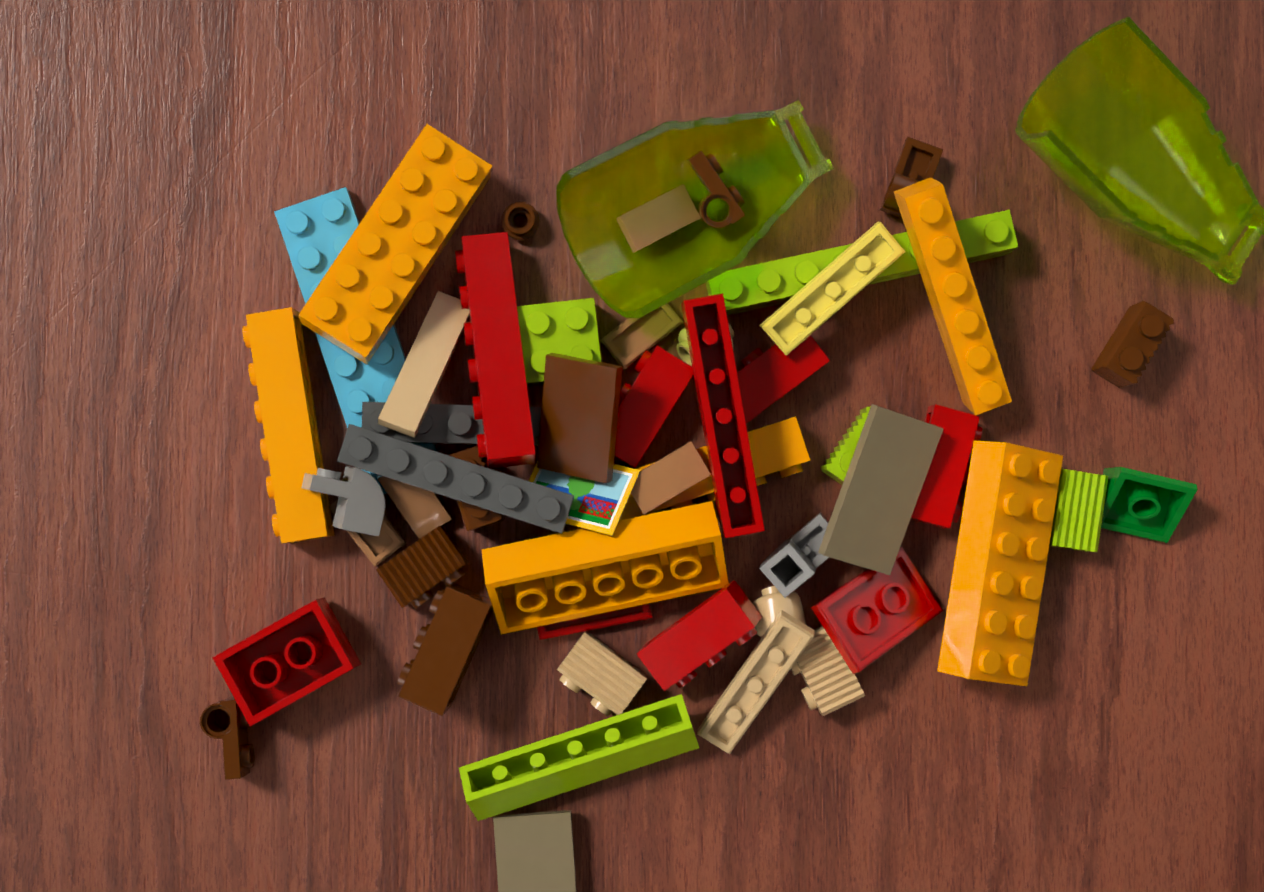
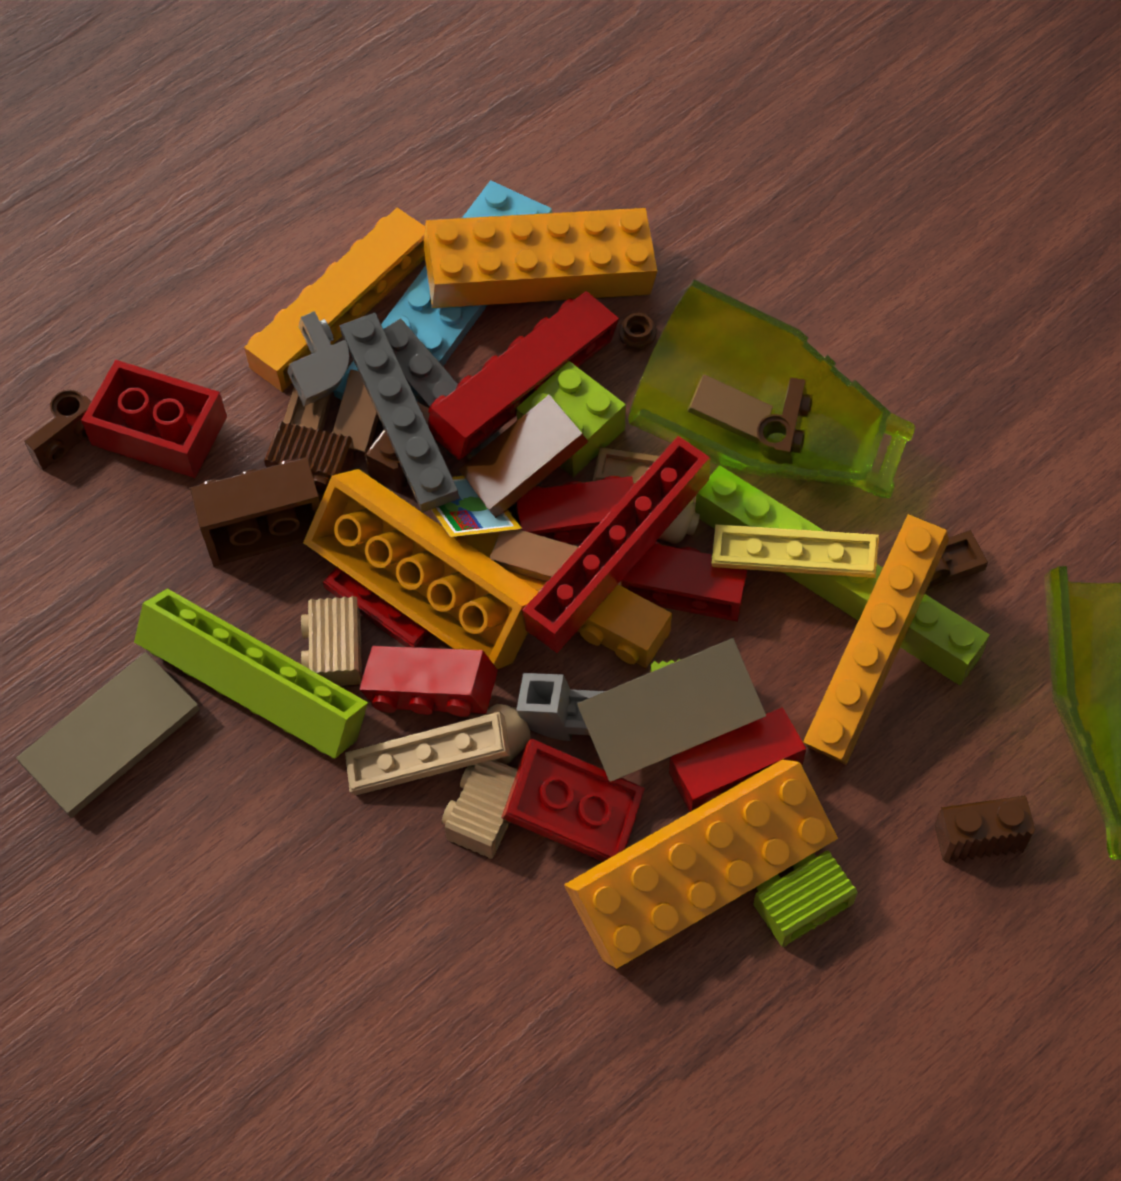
camera: 50 degrees right, 25 degrees down
(424, 366) = (459, 339): tan tile -> none
(1144, 503) = (864, 947): green slope -> none

